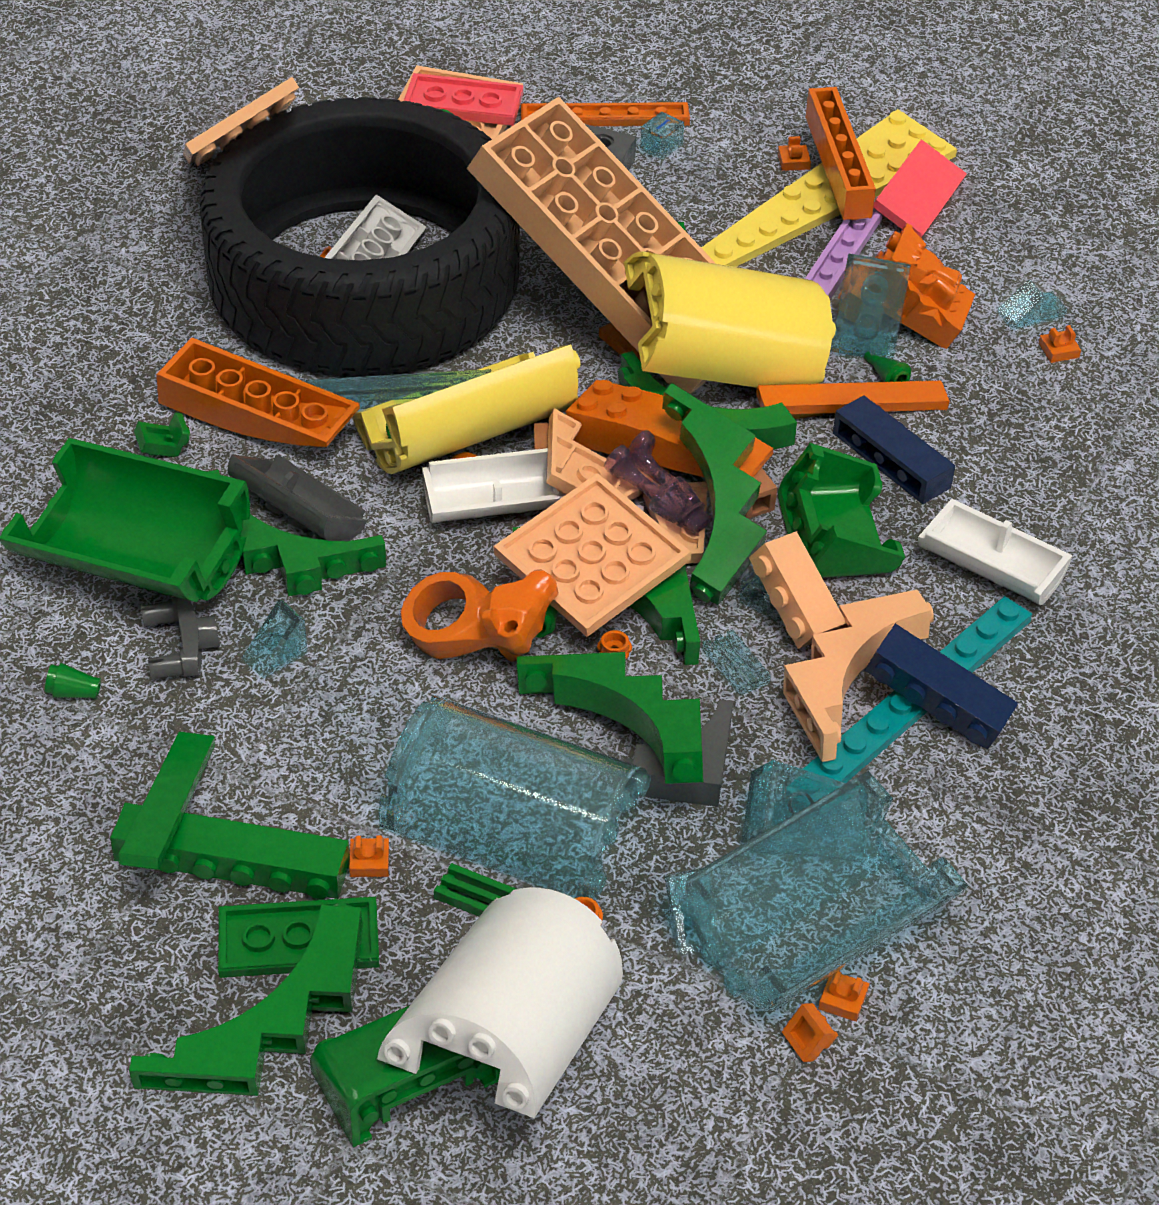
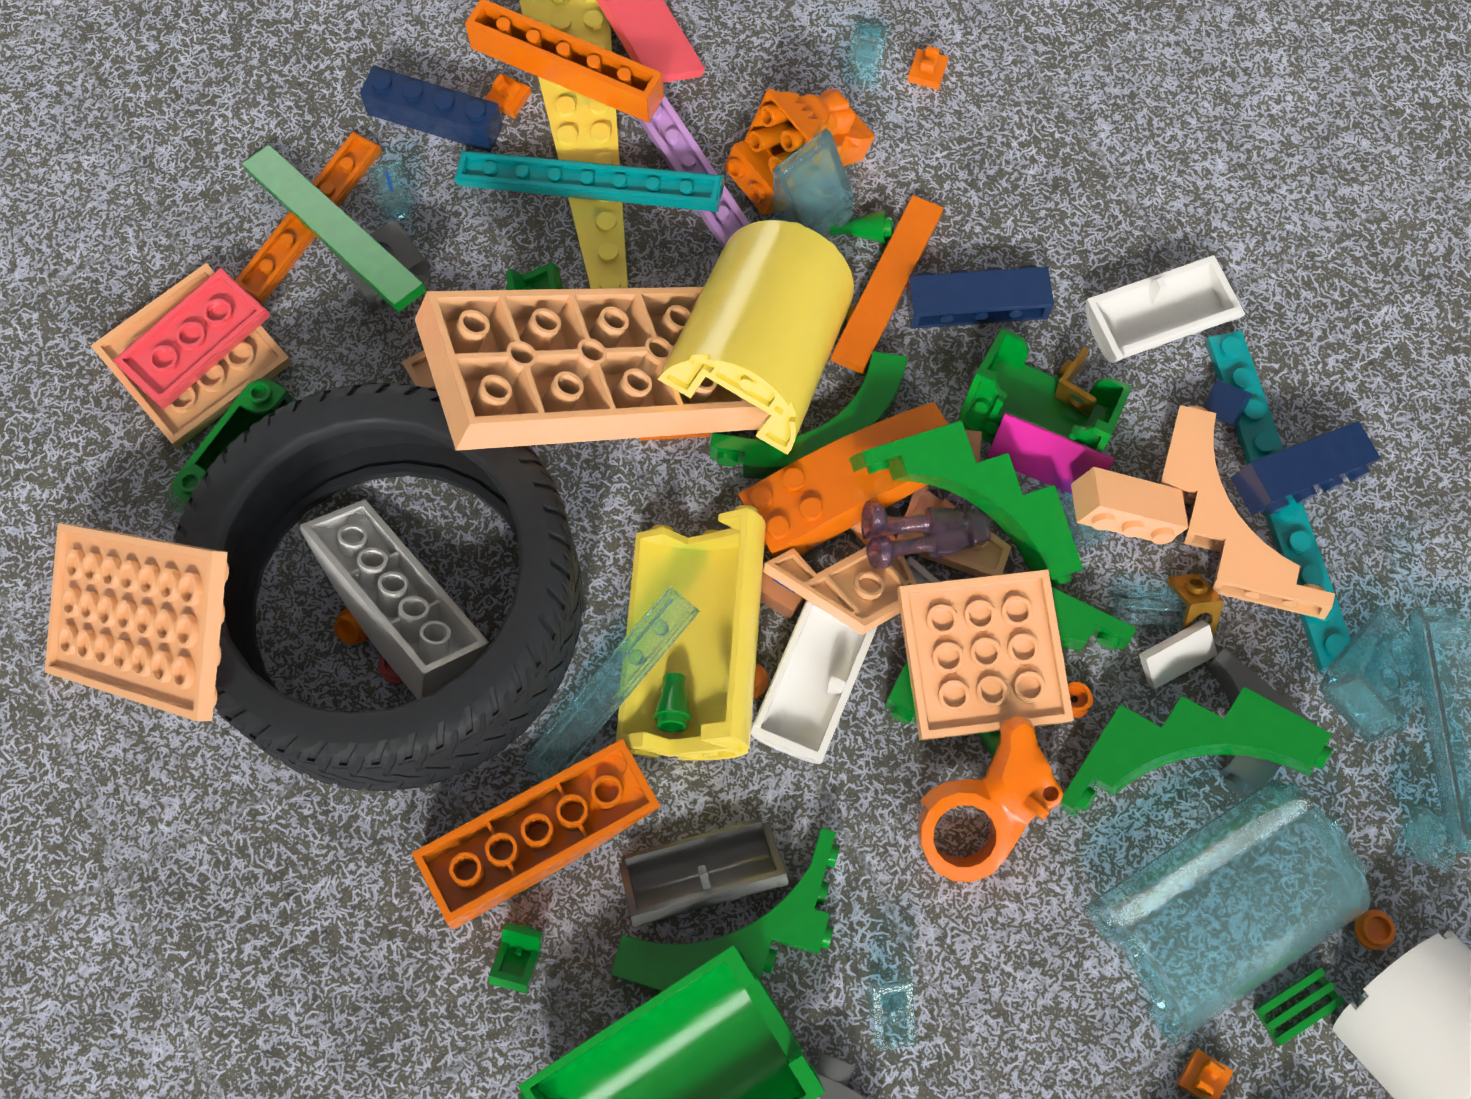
camera: 55 degrees left, 25 degrees up
(608, 101) = (334, 228): none -> tile
(699, 683) = (1178, 654): none -> white tile
(741, 124) = (431, 108): none -> dark blue brick
(766, 675) = (1198, 598): none -> pearl gold bracket
(768, 215) = (590, 180): none -> teal tile
(796, 516) = (1045, 453): none -> dark pink piece
(882, 523) = (1065, 387): none -> pearl gold bracket
(954, 627) = (1227, 402): none -> dark blue tile

